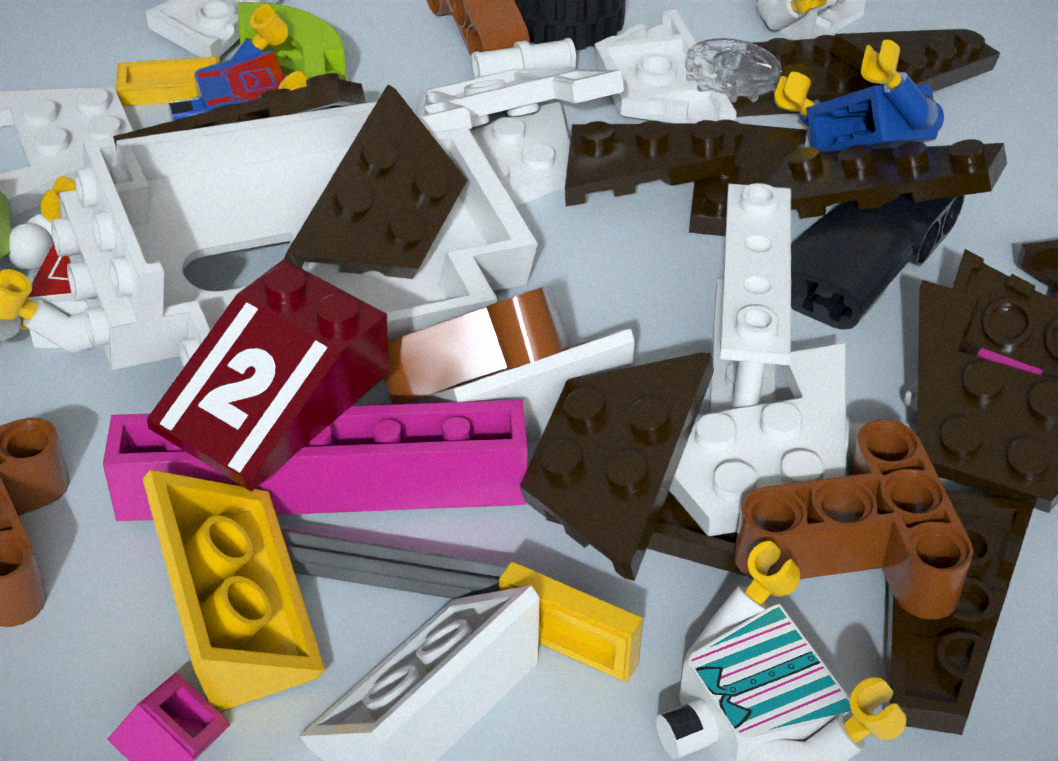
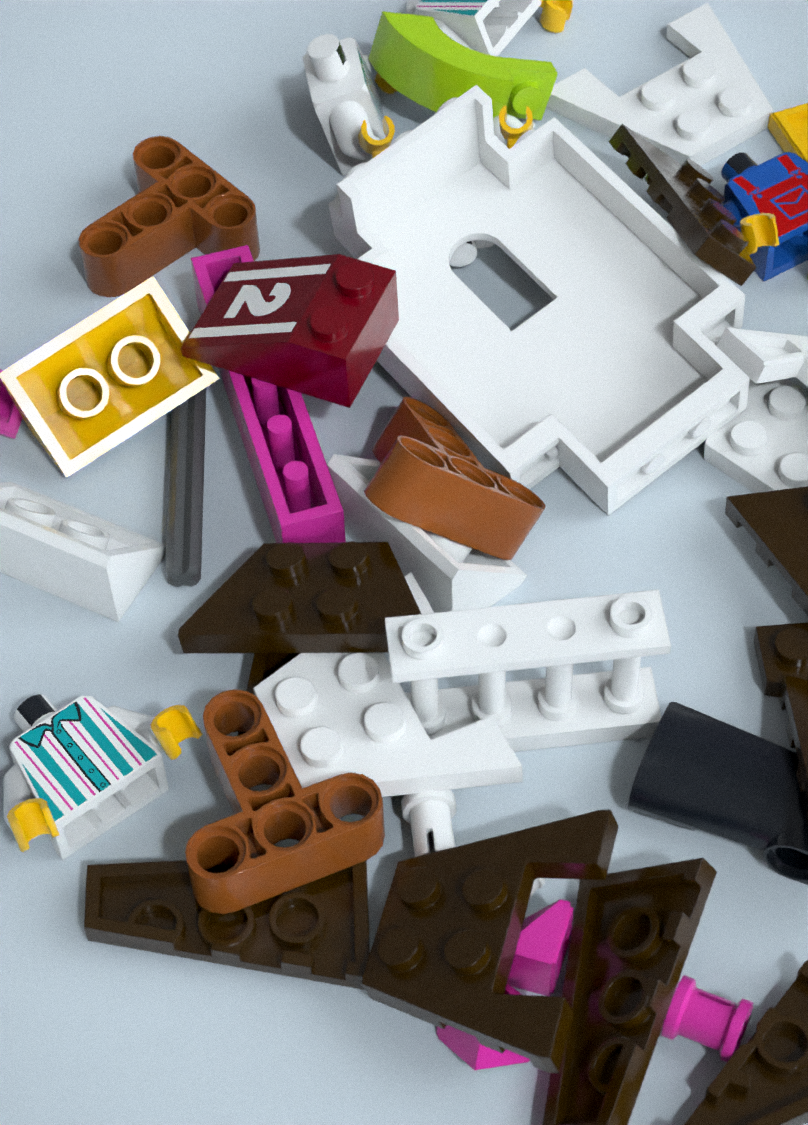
camera: 80 degrees right, 10 degrees up
(382, 197) = (609, 342): dark brown wing -> none
(581, 624) = (138, 621): yellow tile -> none

